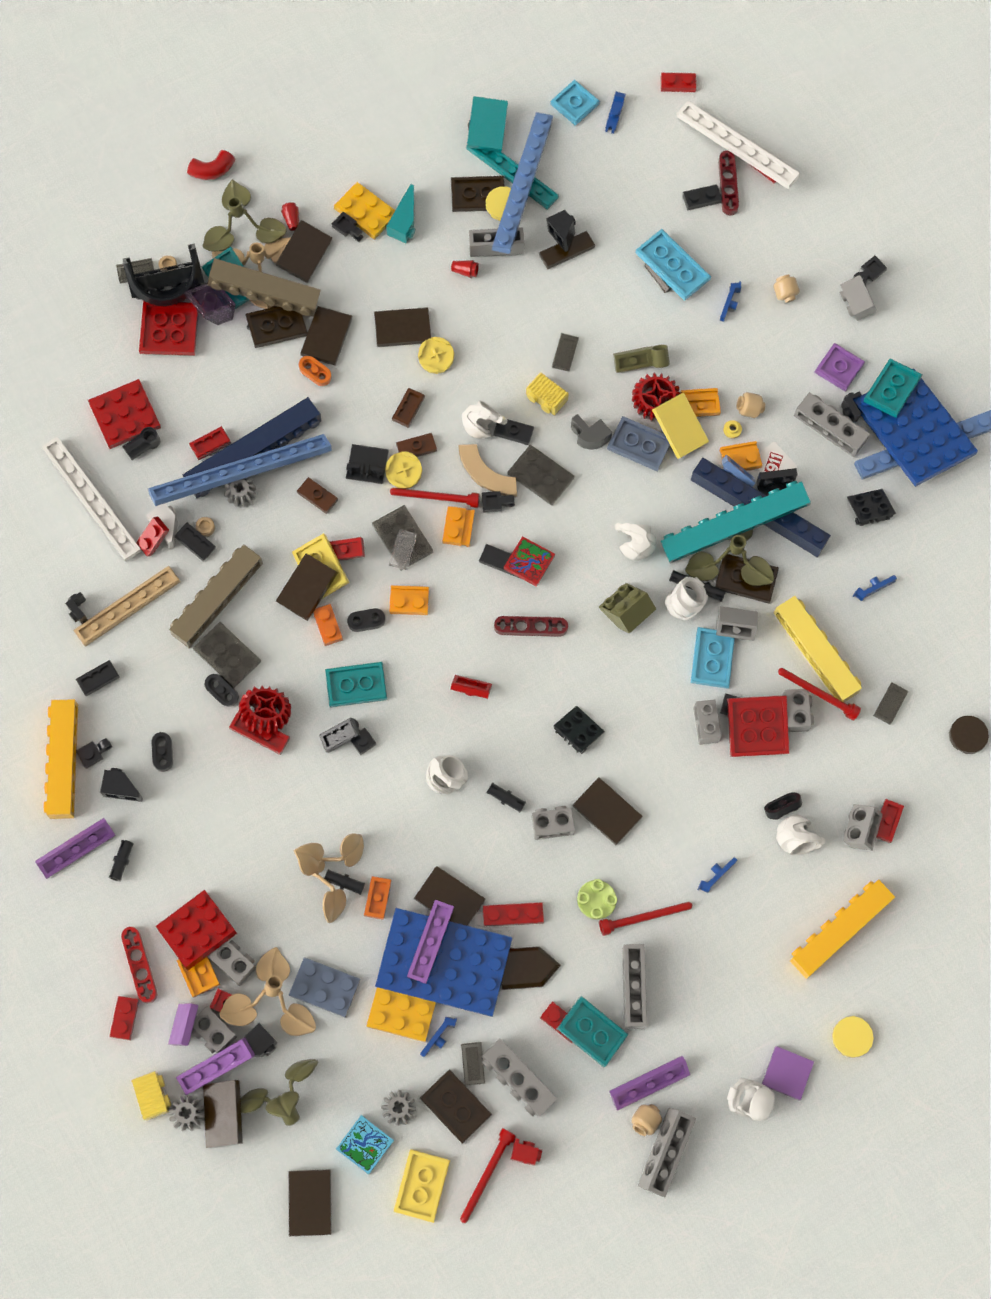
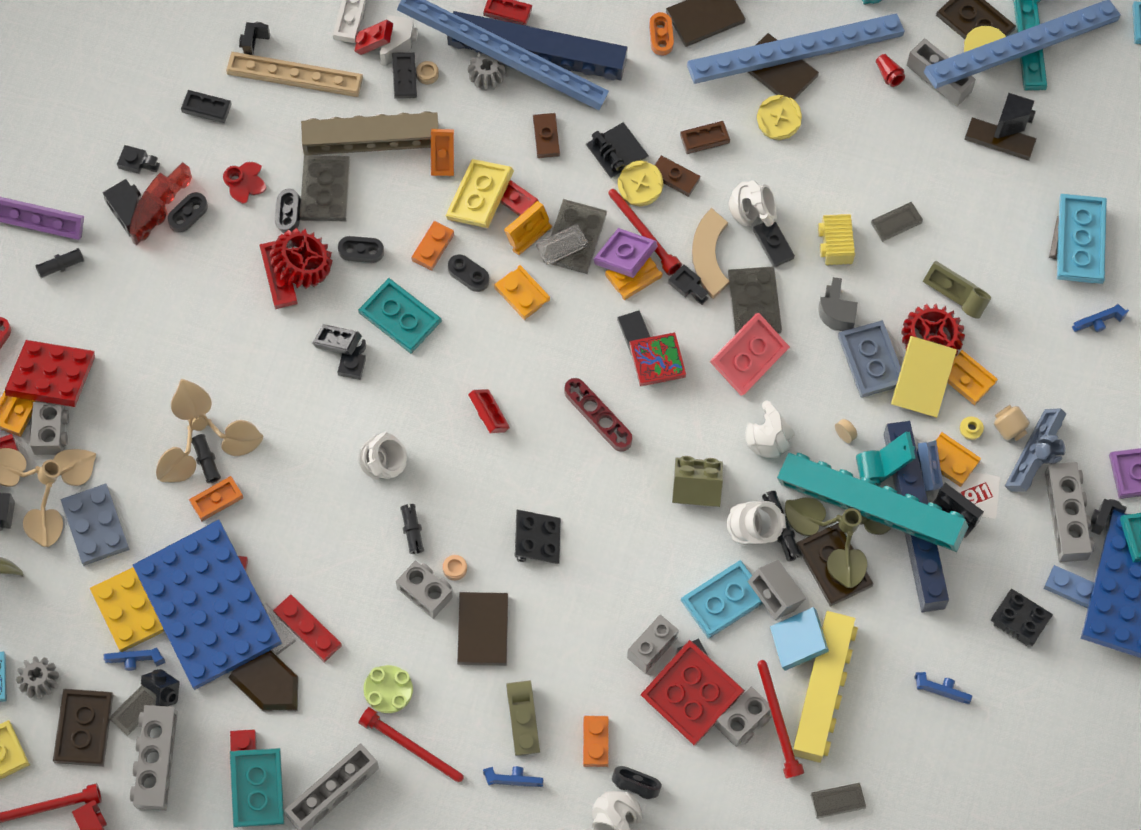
camera: 50 degrees right, 5 degrees down
(62, 759) = (106, 140): yellow brick -> none
(138, 770) = (151, 206): none -> clear red slope
(176, 699) = (247, 182): none -> red plate
(273, 564) = (442, 152): none -> orange plate
(287, 667) = (361, 248): none -> black plate
(306, 586) = (449, 197): dark brown tile -> none
(372, 559) = (528, 228): none -> light orange plate
(400, 306) = (795, 48): none -> medium blue plate
(430, 941) = (211, 572): medium lavender plate -> none
(442, 518) = (625, 252): none -> medium lavender tile
(451, 891) = (272, 560): dark brown tile -> none
(474, 1034) = (163, 686): none -> black bracket
(553, 793) = (454, 567): none -> light nougat tile
(575, 507) = (749, 354): none -> coral plate
(672, 497) = (846, 430): none -> tan tile
(685, 835) = (523, 717): none -> olive plate
(715, 491) = (890, 459): none -> teal door
(735, 807) = (595, 741): none -> orange plate
(778, 637) = (799, 638): none -> tile
(781, 406) = (1040, 449): none -> sand blue plate

